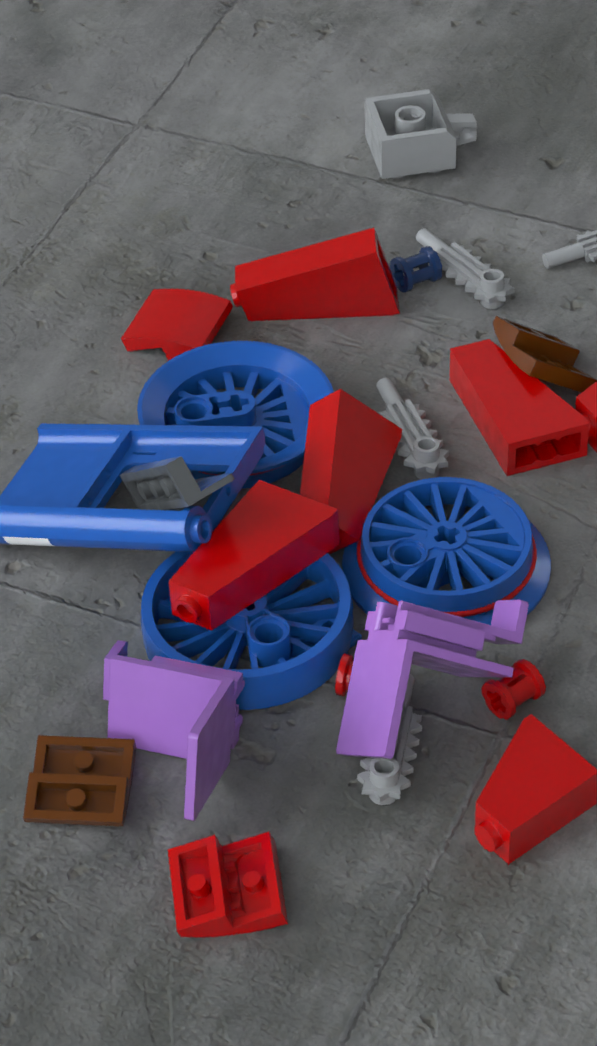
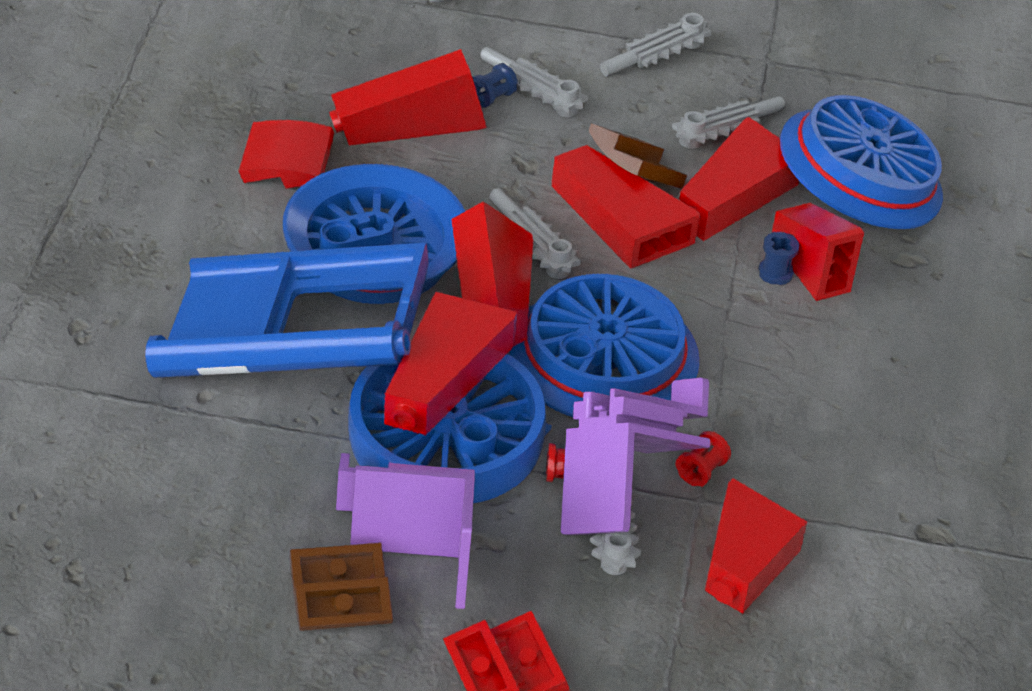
camera: 20 degrees left, 0 degrees up
(169, 484) = (356, 304): dark grey panel -> none

